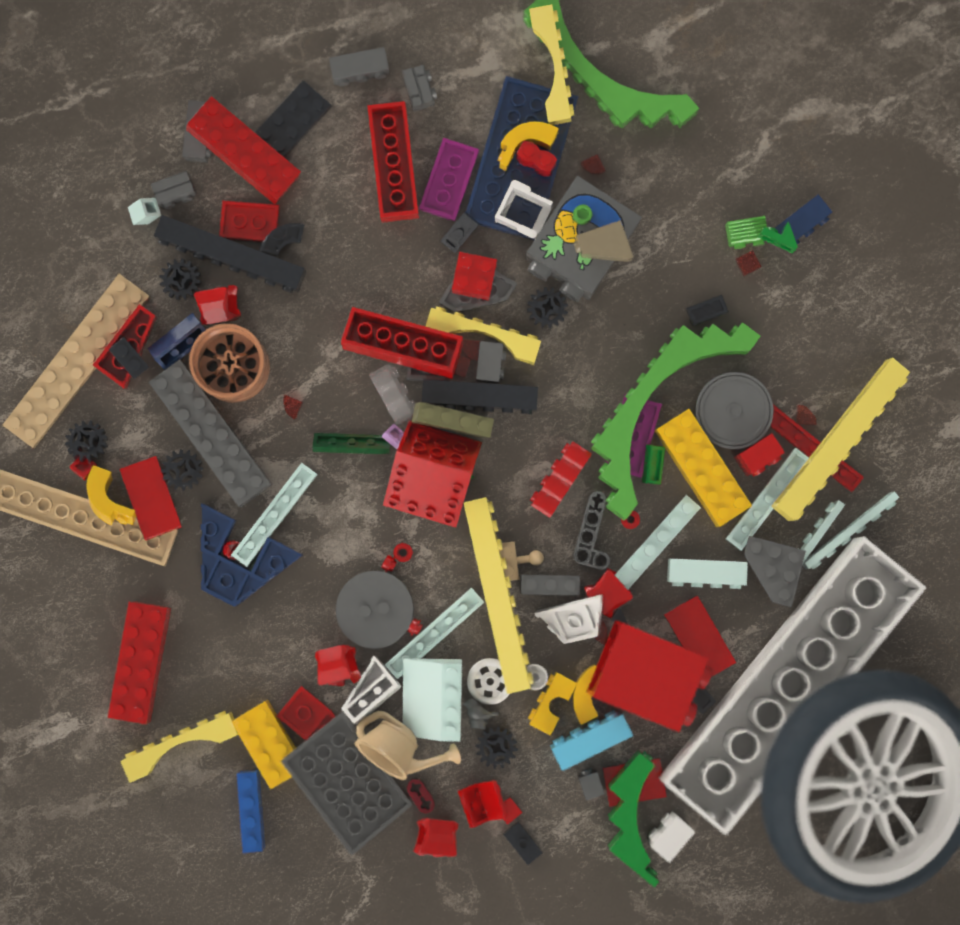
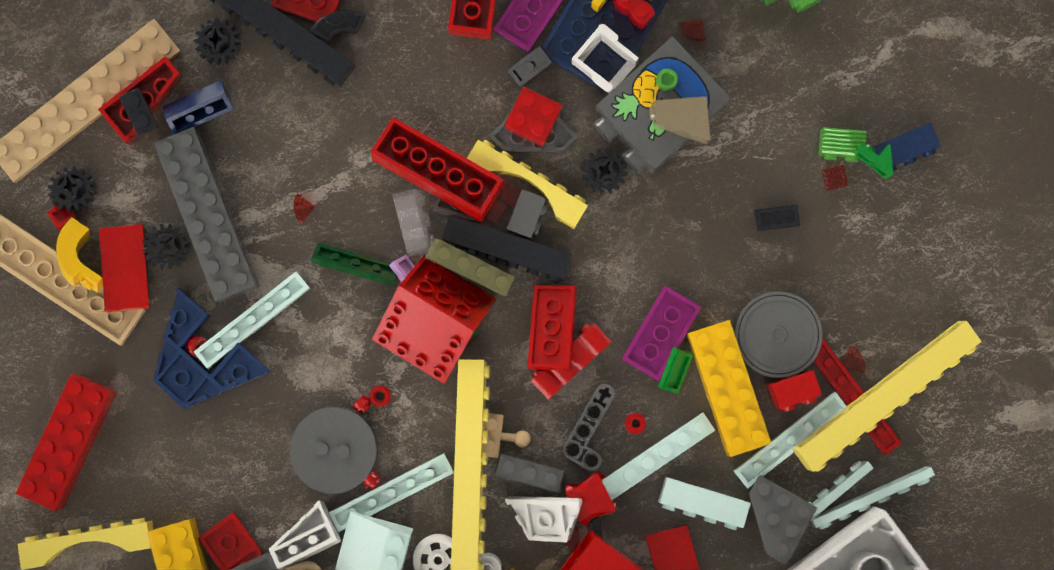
camera: 20 degrees right, 0 degrees up
(212, 340) = (235, 114): nougat wheel -> none
(218, 304) = (250, 78): red piece -> none
(336, 665) = (277, 501): red piece -> none
(537, 454) = (552, 327): none -> red tile
(616, 438) = (641, 333): bright green arch -> none

